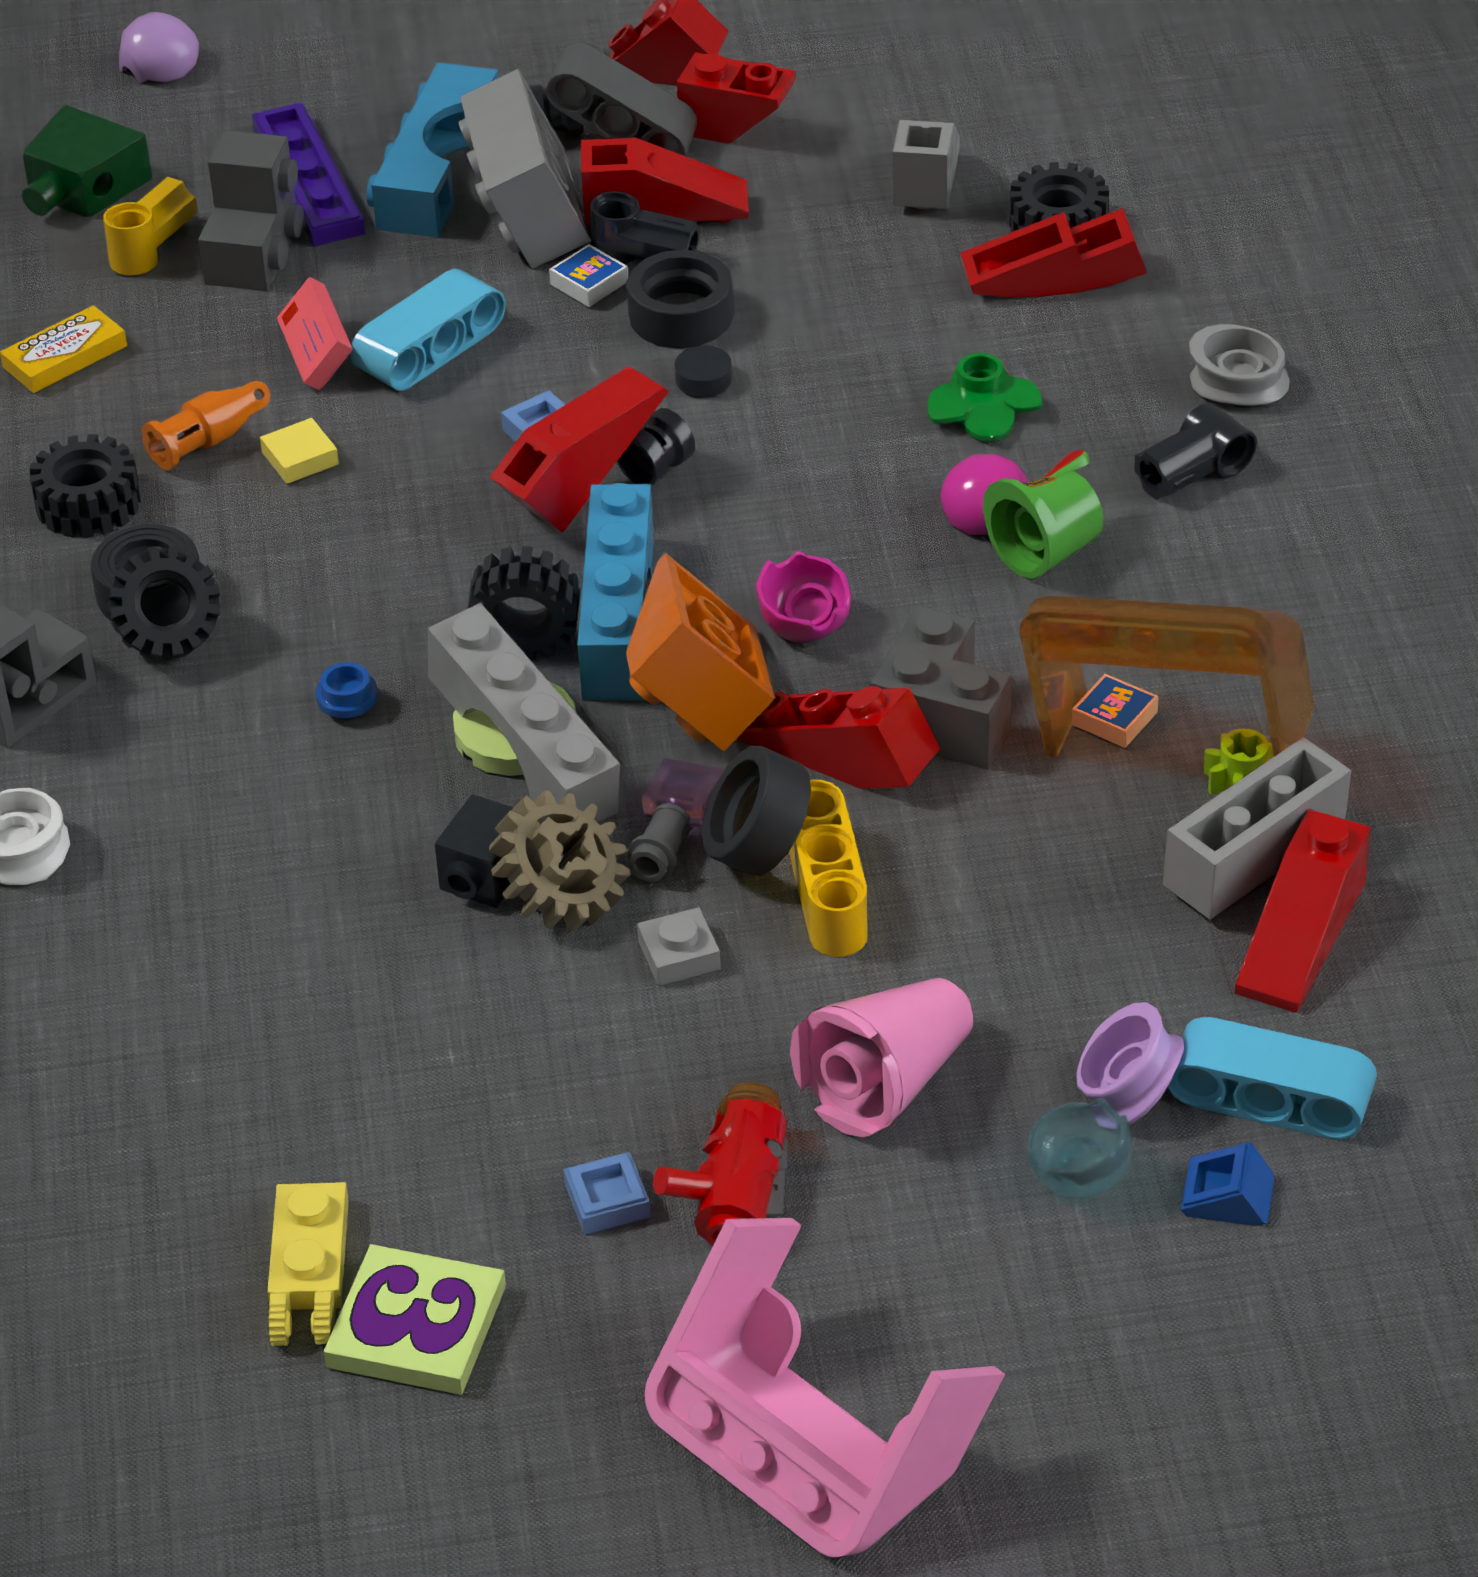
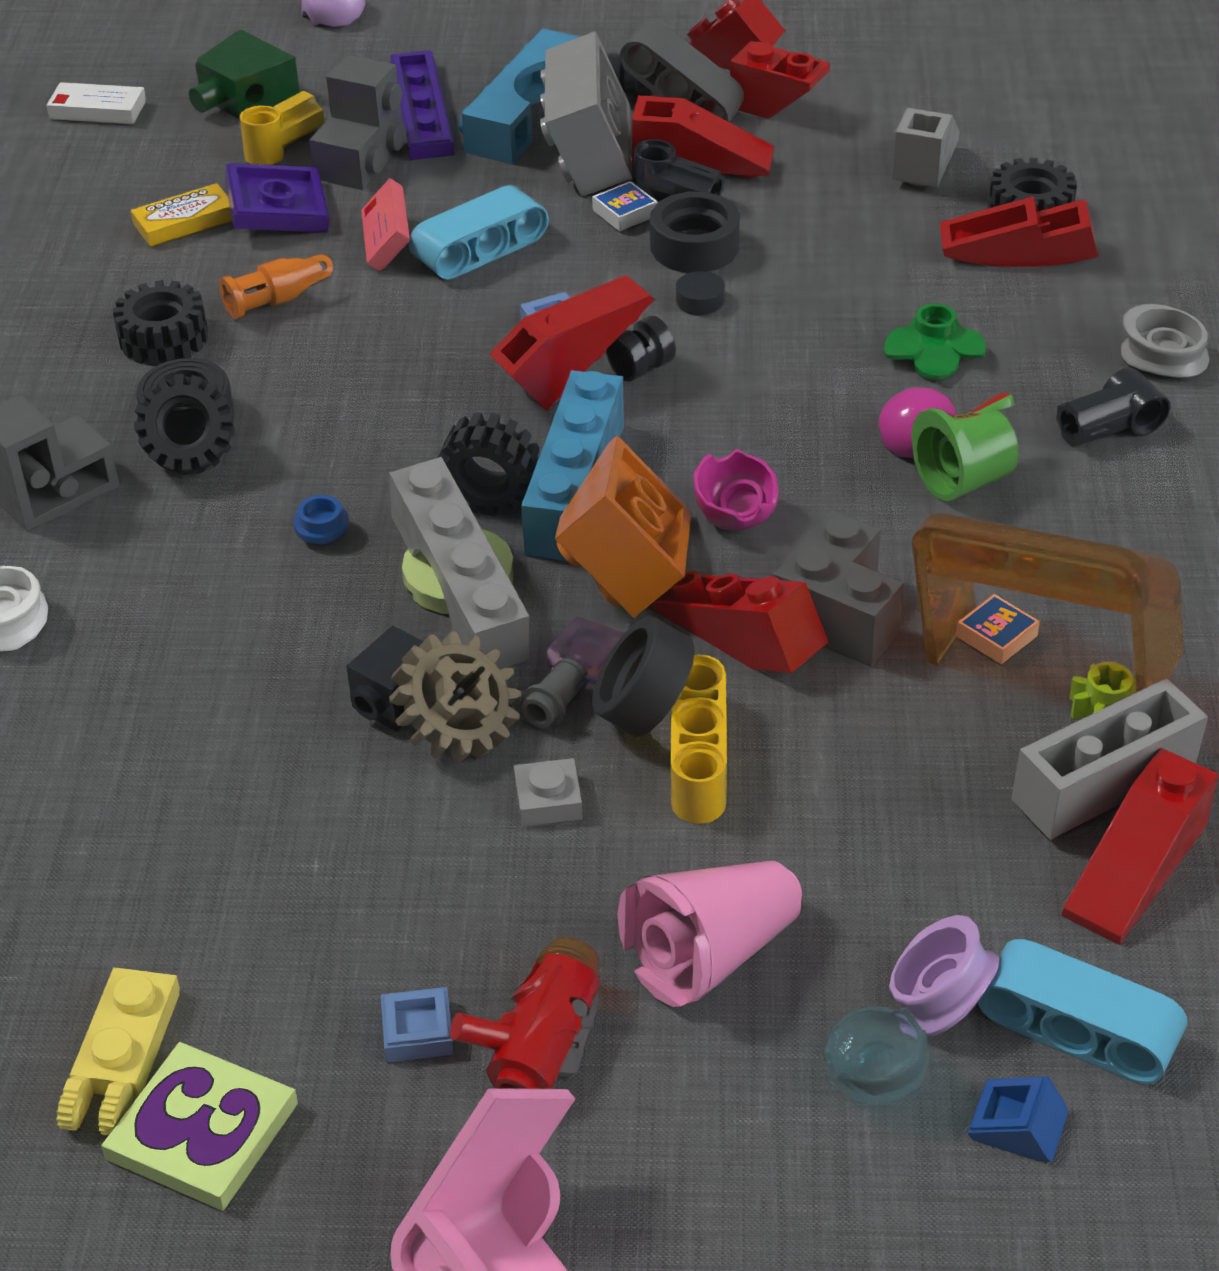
camera: 10 degrees right, 0 degrees up
(171, 315) = (276, 198): none -> dark purple tile
(299, 450) = (346, 316): light yellow tile -> none

